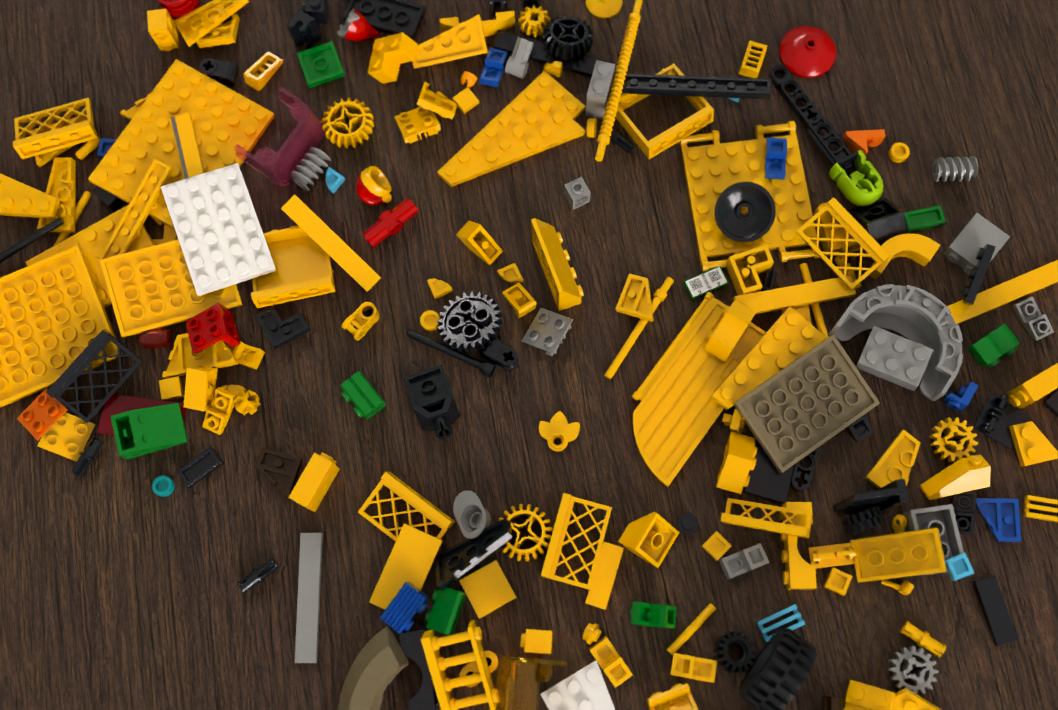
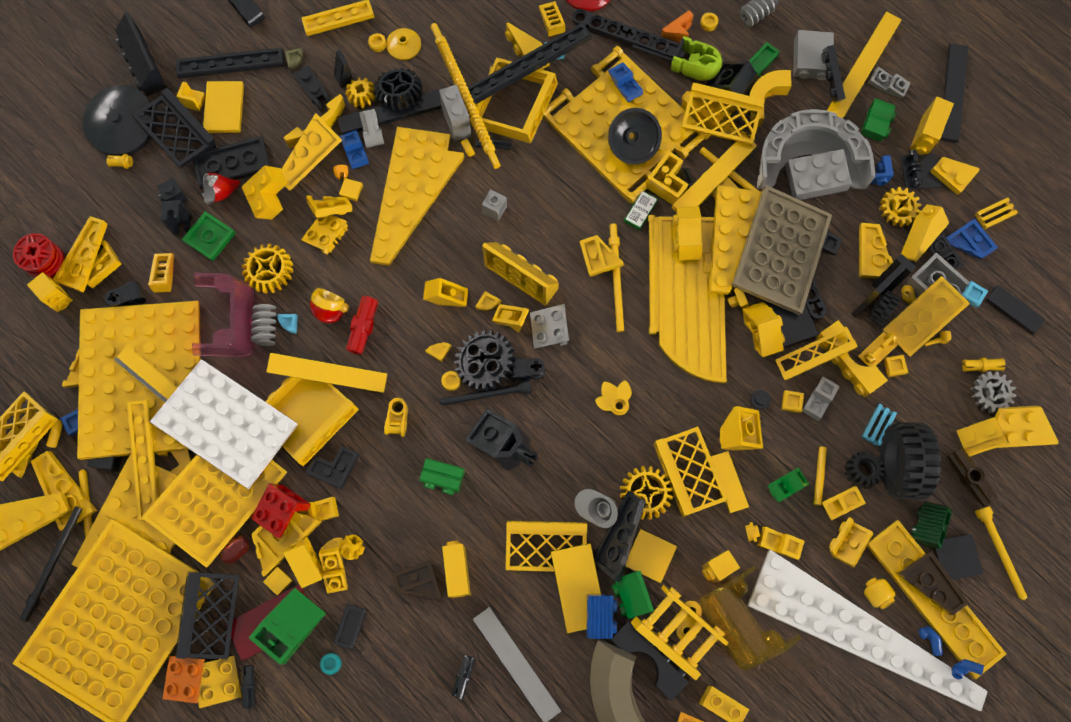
camera: 40 degrees left, 0 degrees up
(553, 69) = (403, 121): yellow tile -> none
(709, 64) = (521, 41): none -> yellow slope

